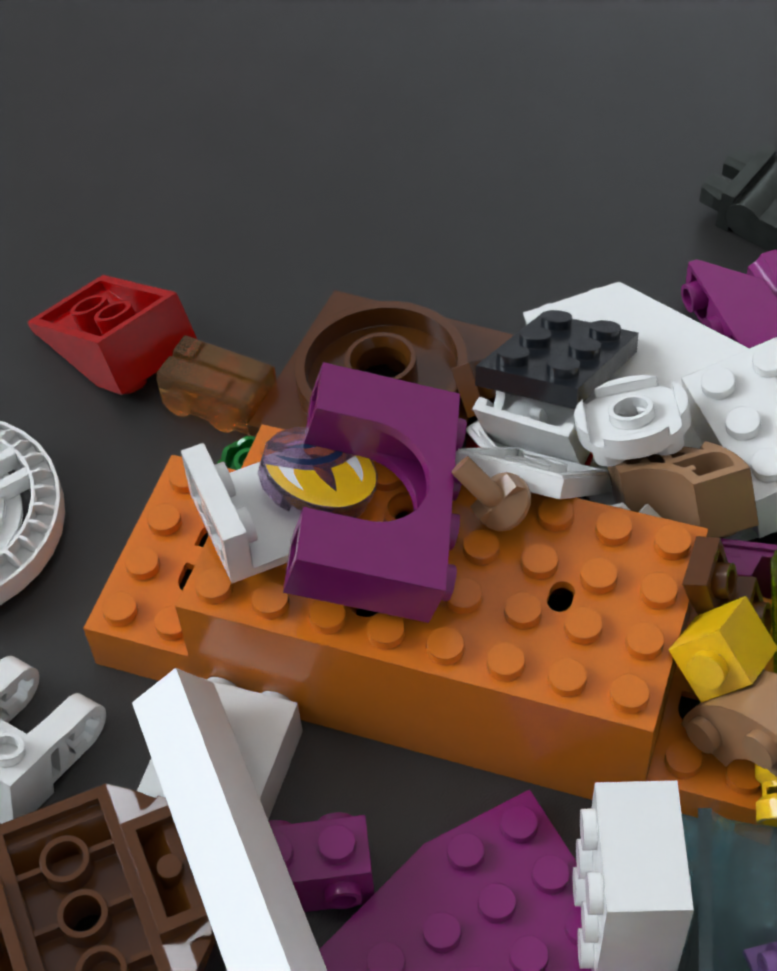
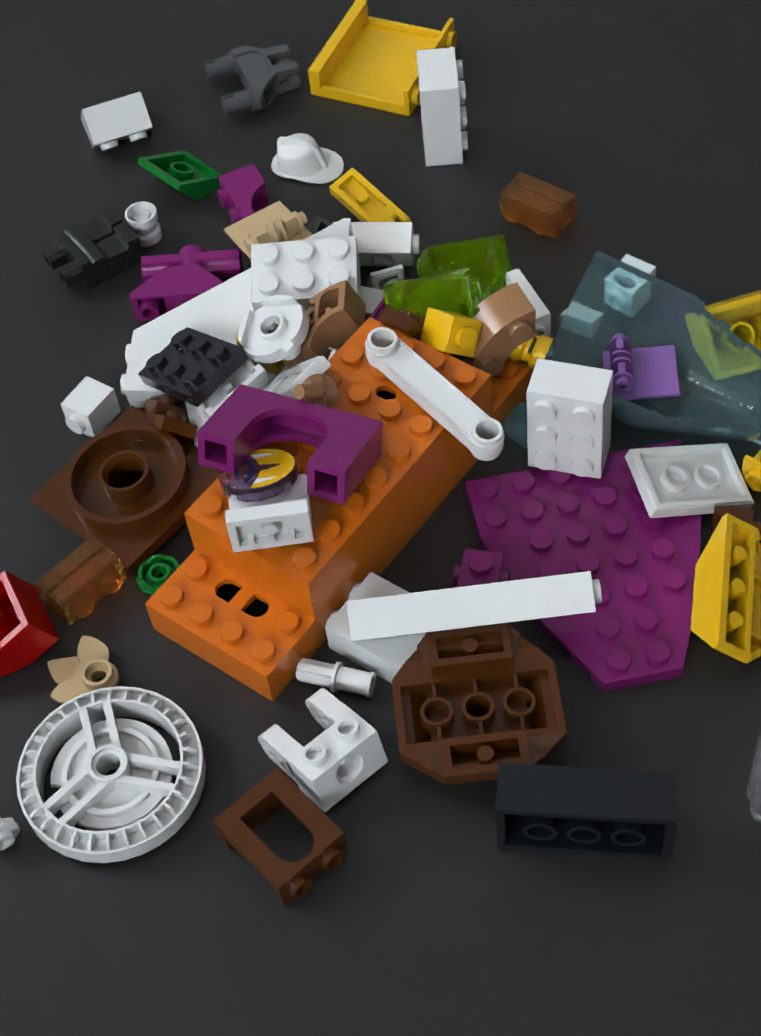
camera: 70 degrees left, 0 degrees up
(90, 441) = (78, 673): none -> tan plate
(132, 749) = (336, 677): none -> white axle
(496, 294) = (90, 407): none -> white brick
(560, 656) = (434, 394): none -> white piece

